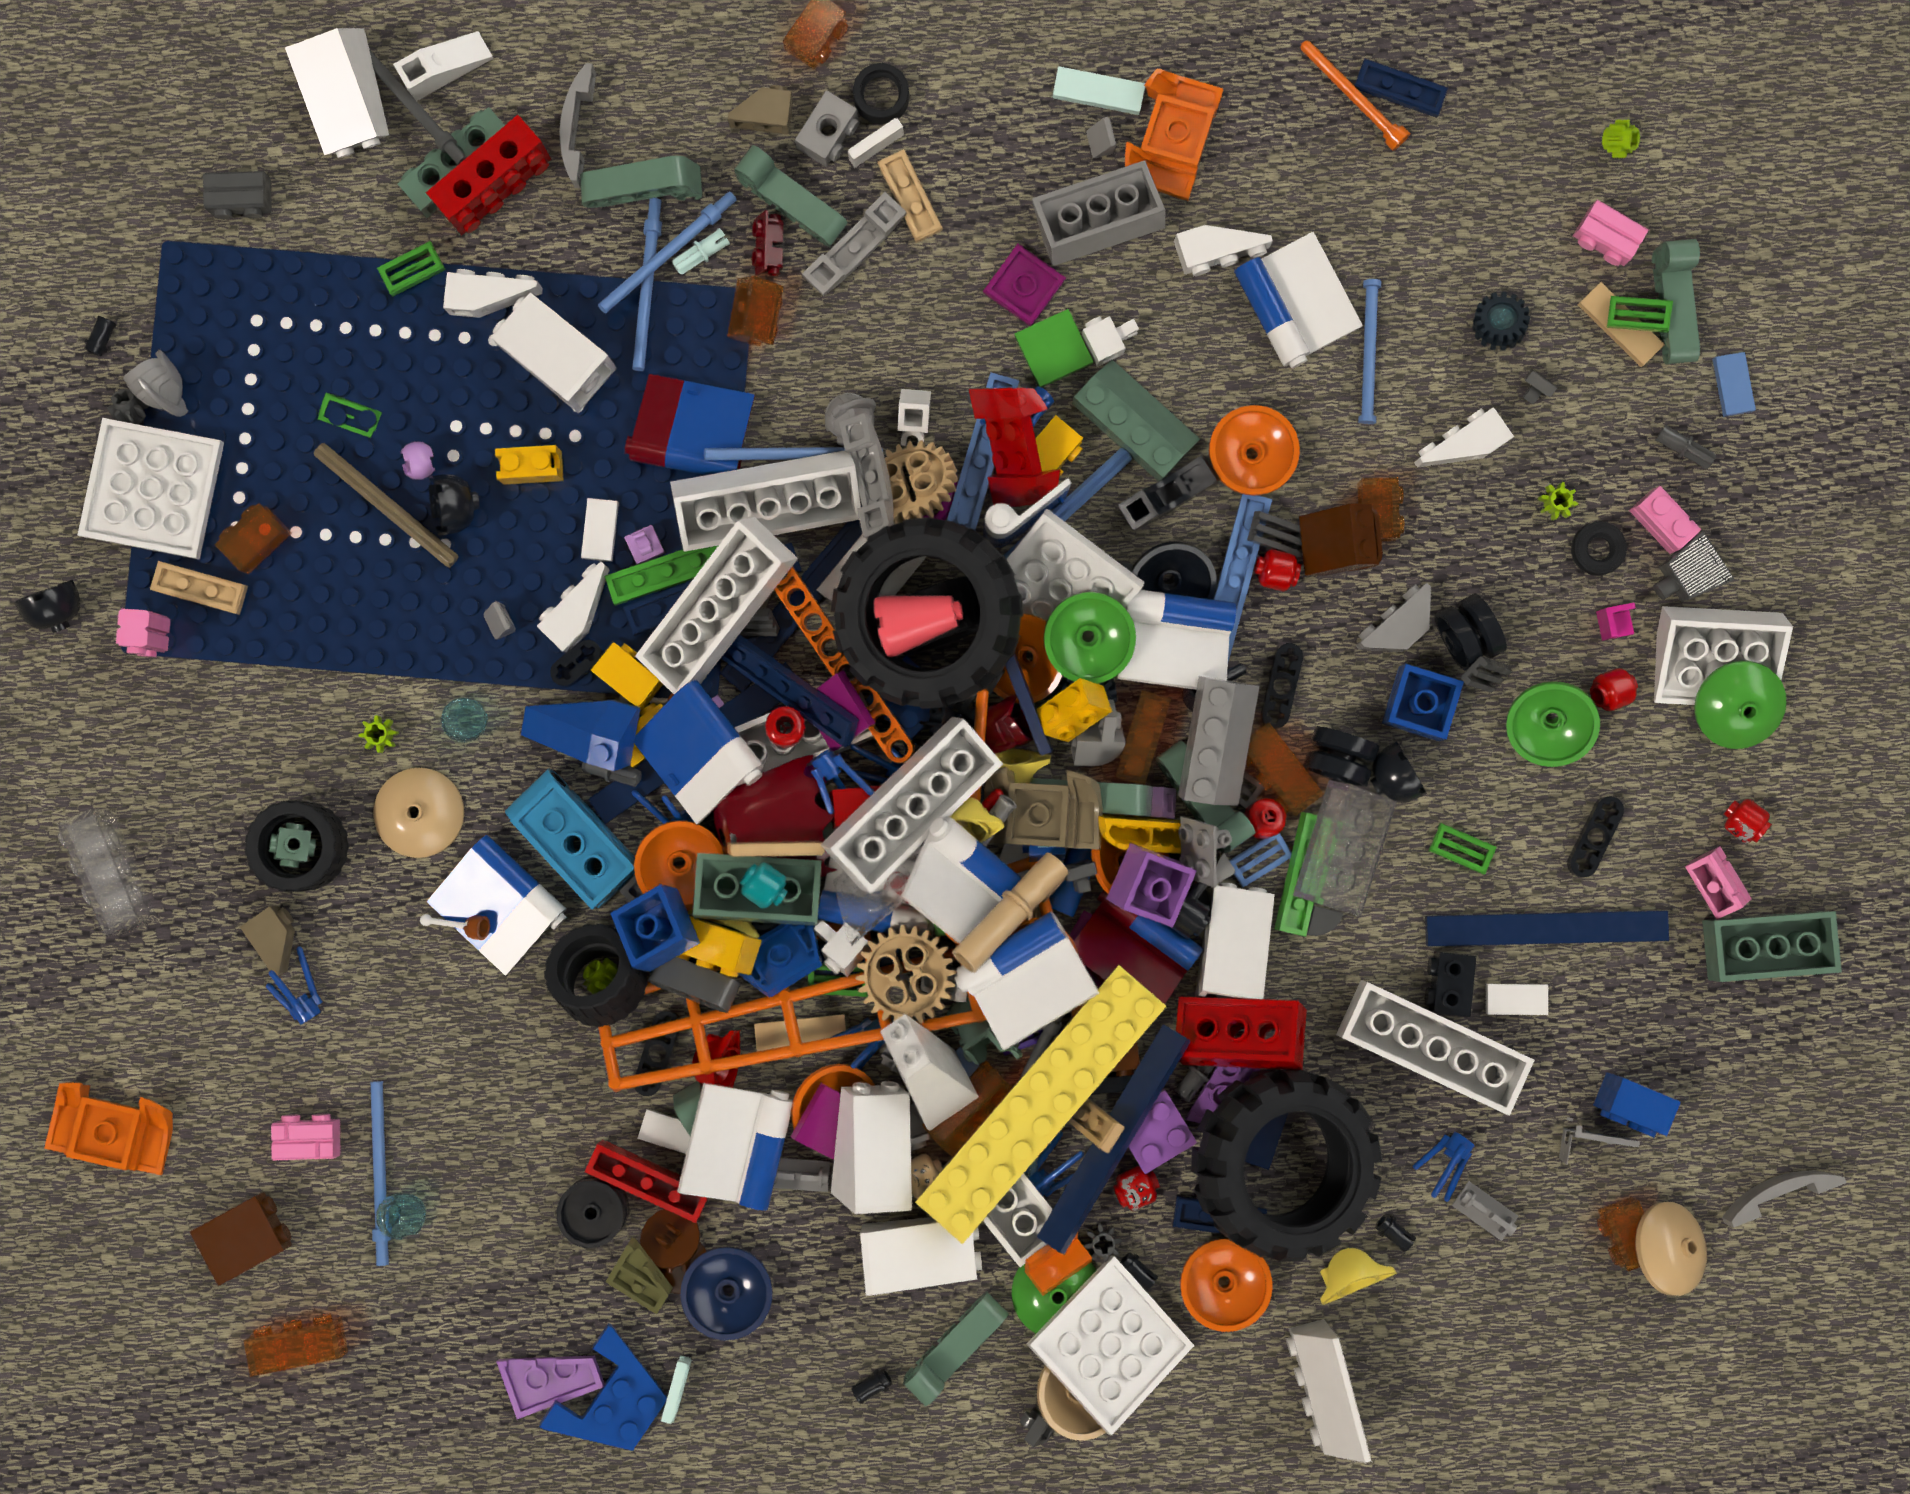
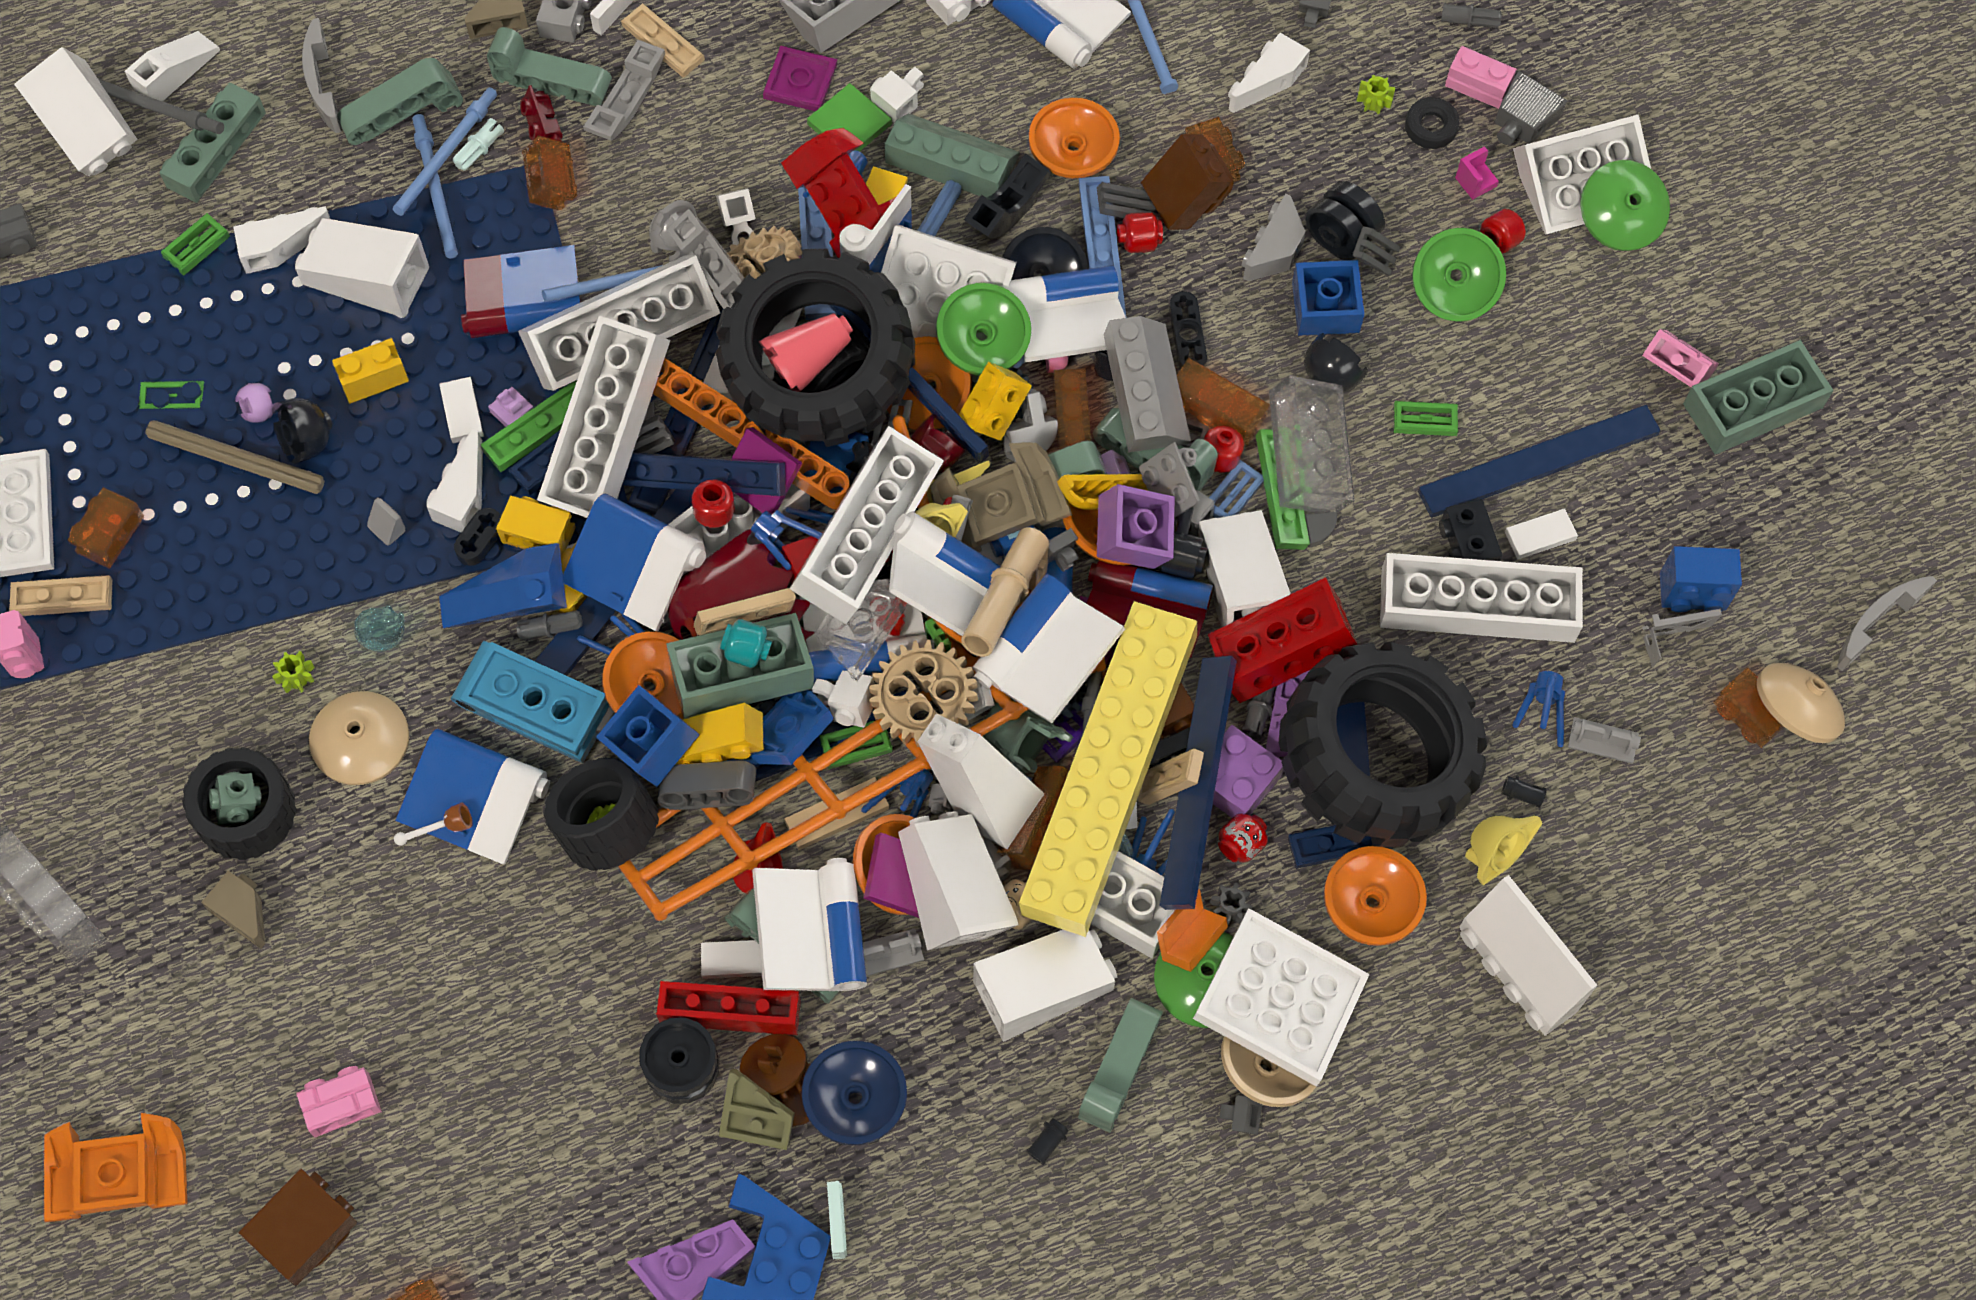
camera: 20 degrees left, 20 degrees down
(302, 1007) = (295, 968): blue plant -> none
(379, 1168) = (453, 1173): medium blue bar -> none
(400, 1215) = (470, 1141): clear light blue hair -> none
(490, 175) = (248, 138): red brick -> none
(645, 1054) = (701, 859): black beam -> none
(1139, 1270) = (1284, 920): black pin -> none
(1340, 758) = (1268, 359): black wheel -> none
(1596, 813) = (1553, 354): black beam -> none
(1747, 821) = (1681, 301): red head -> none

